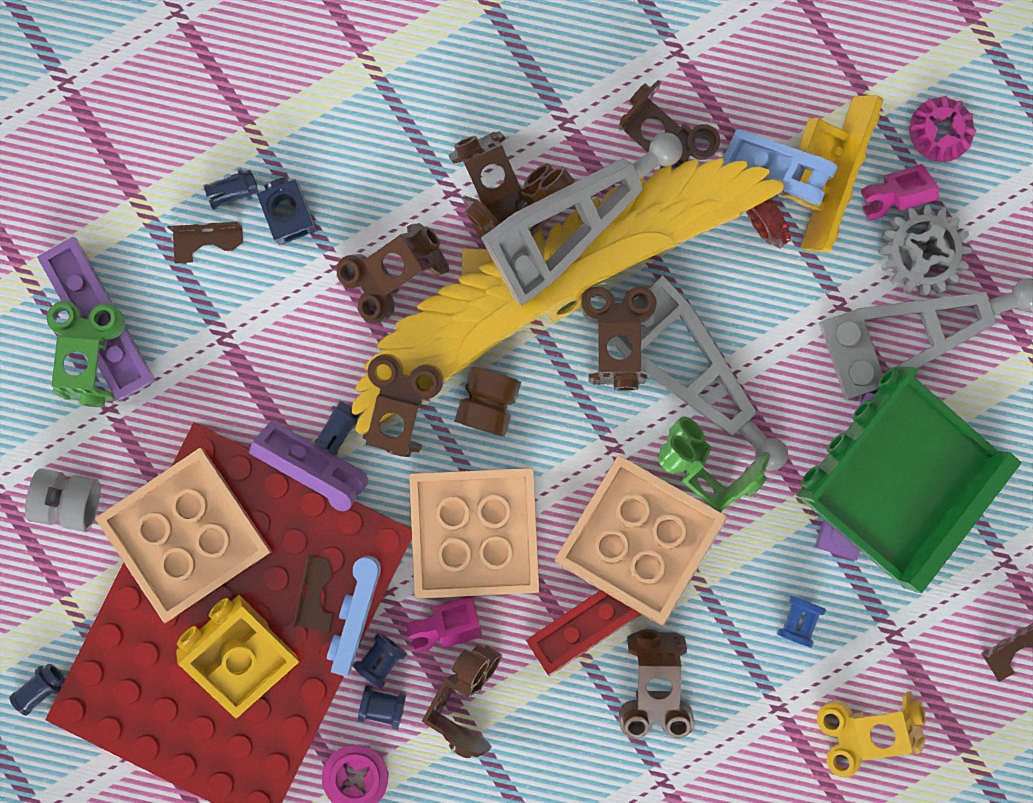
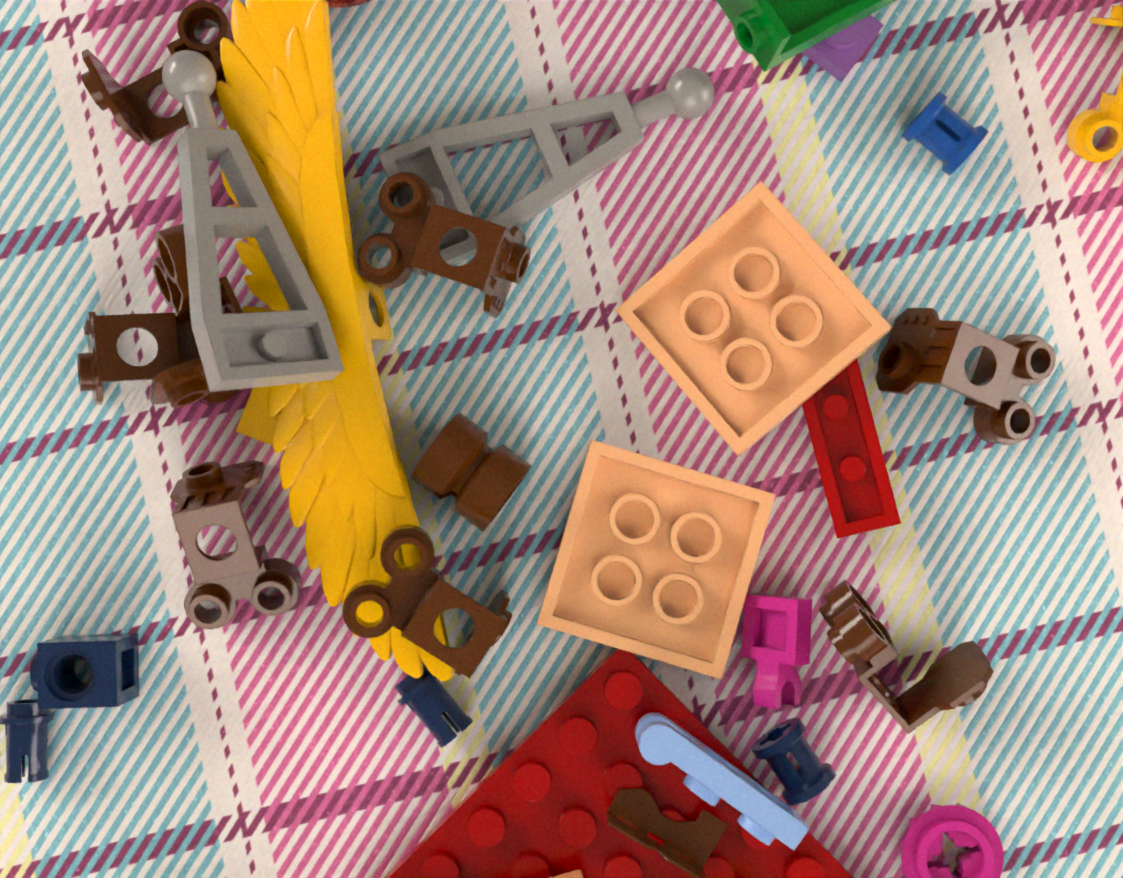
camera: 70 degrees left, 0 degrees up
(188, 242) = (85, 827): reddish brown piece -> none
(309, 465) = (472, 767): medium lavender plate -> none
(381, 707) = (863, 782): dark blue bush -> none
(689, 452) = (651, 205): bright green piece -> none

